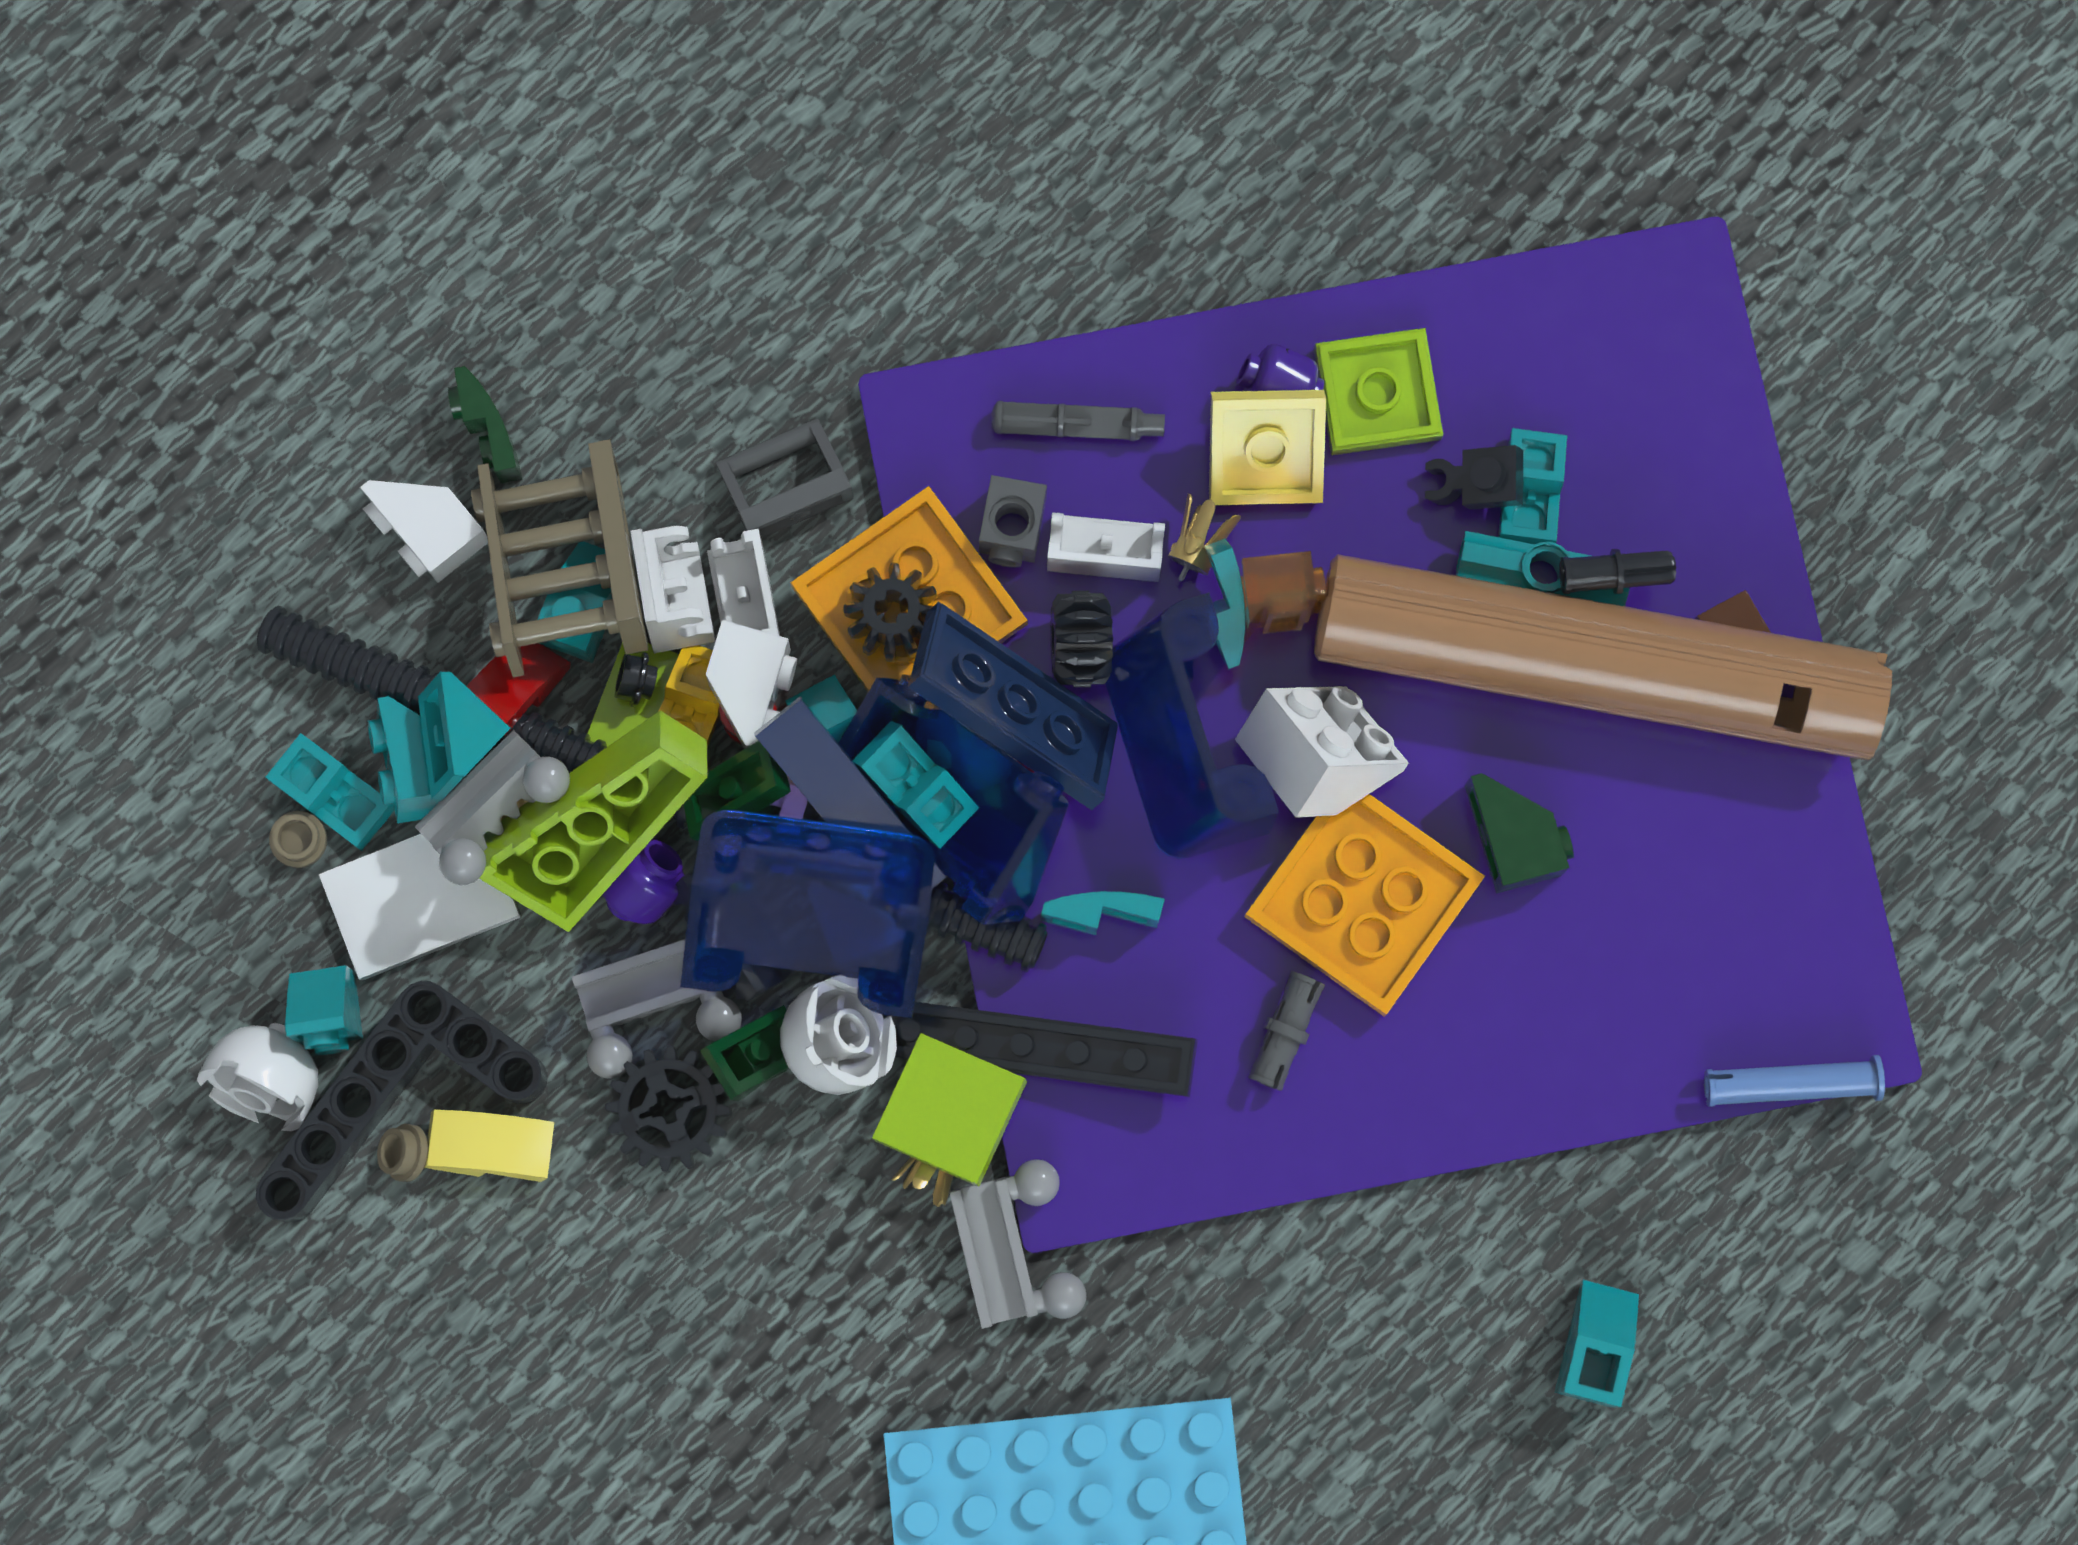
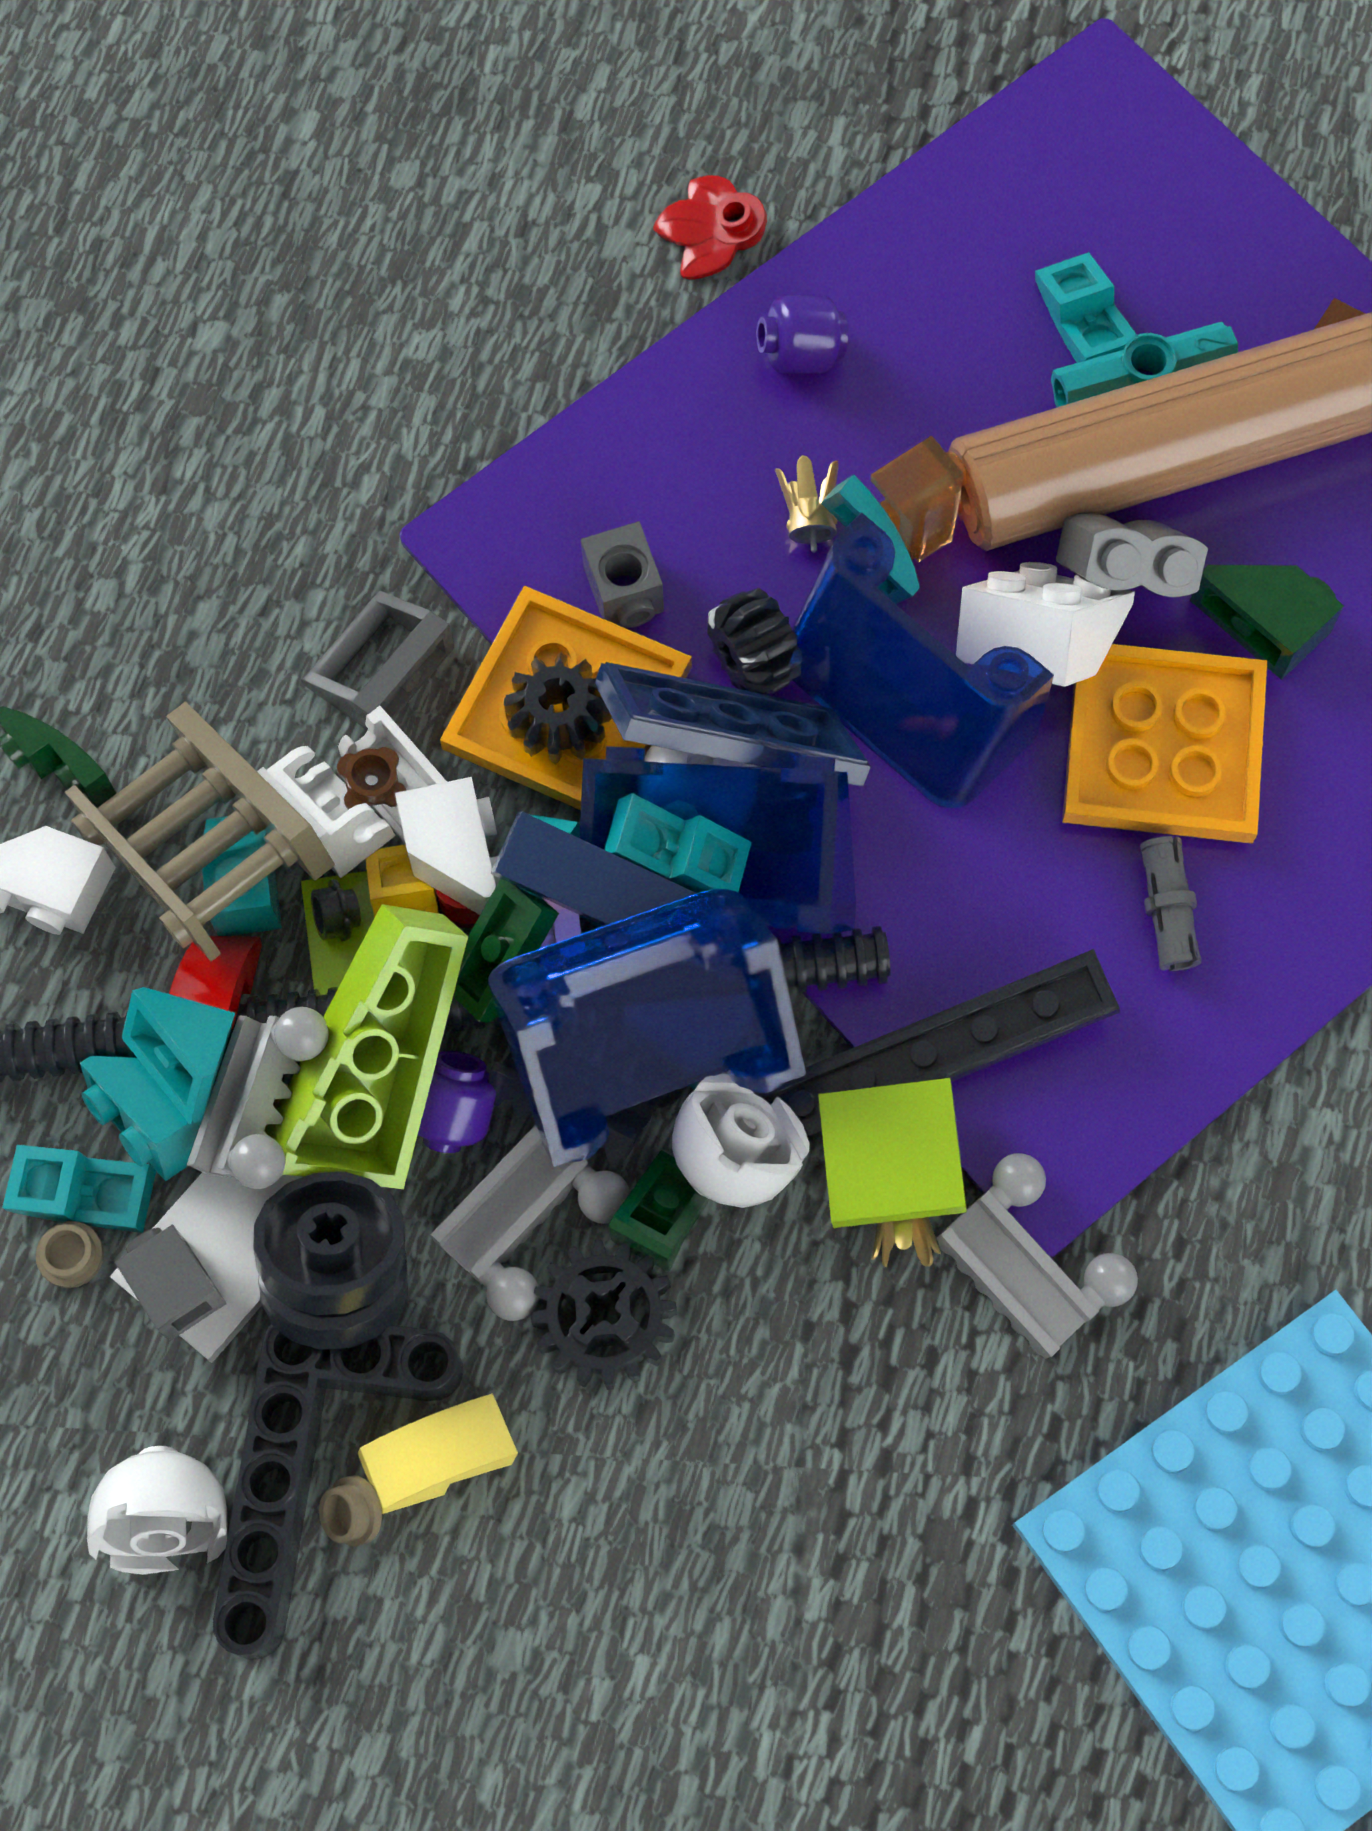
camera: 25 degrees left, 10 degrees down
(323, 1009) = (188, 1407): teal slope -> none
(358, 906) = (169, 1281): none -> dark grey brick
(482, 961) = (331, 1260): none -> black wheel
(711, 572) = (368, 762): none -> reddish brown plate
(1075, 421) = (628, 464): dark grey piece -> none
(1084, 910) = (910, 894): teal slope -> none
(1105, 547) = (727, 560): white hinge -> none
(1264, 228) = (705, 227): none -> red plate
(1267, 447) = (825, 388): light yellow plate -> none
(1379, 391) = (896, 302): lime tile -> none
(1425, 730) = (1131, 554): none -> brick
(1486, 478) = (1042, 318): black plate -> none
(1616, 571) = (1217, 324): black axle -> none

